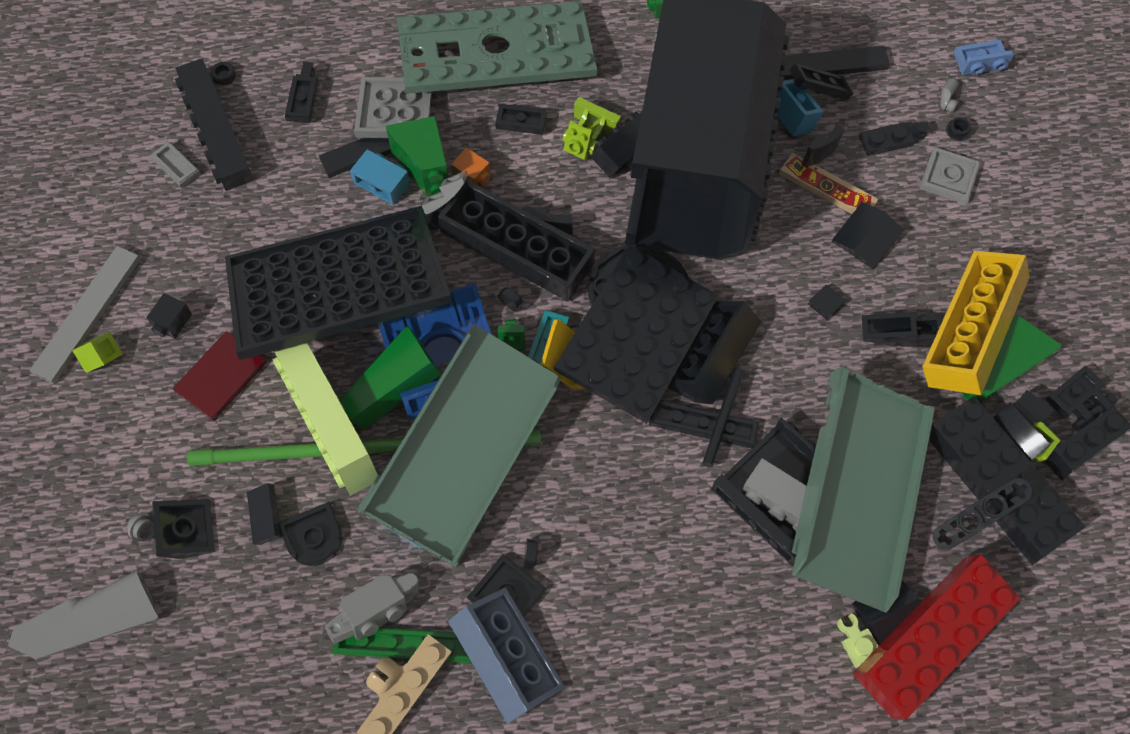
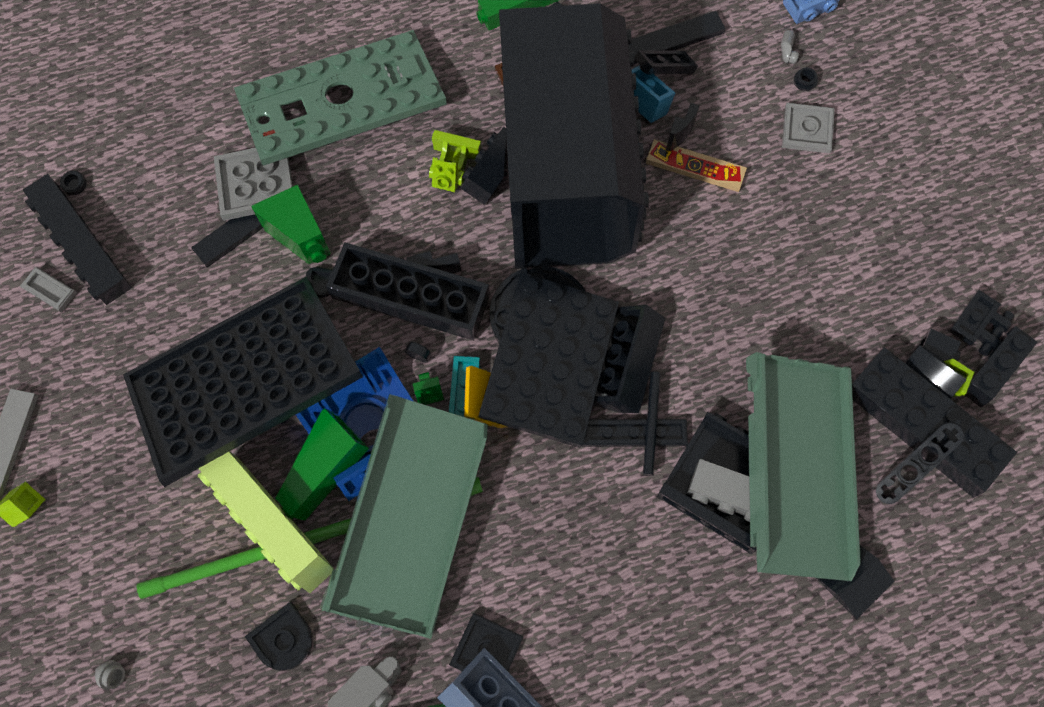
camera: 10 degrees left, 5 degrees up
(168, 316) = (82, 450): black brick -> none
(182, 528) = (151, 665): black slope -> none
(218, 377) = (145, 503): dark red tile -> none
(263, 514) = (228, 630): black tile -> none
(302, 95) = (159, 188): black hinge -> none
(380, 176) = (258, 255): dark azure brick -> none
(448, 190) = (329, 257): light grey slope -> none
(476, 167) = (346, 227): orange brick -> none
(521, 119) = (382, 164): black plate -> none
(531, 551) = (500, 605): black tile -> none
(826, 302) = (721, 283): black tile -> none
(858, 644) = (832, 616): yellowish green plate -> none
(868, 234) = (745, 205): black slope -> none
(893, 137) = (745, 101): black hinge -> none
(901, 329) = (801, 294): black slope -> none
(936, 636) = (903, 593): red brick -> none
(976, 322) = (870, 273): yellow brick -> none
(1020, 353) = (905, 300): green slope -> none

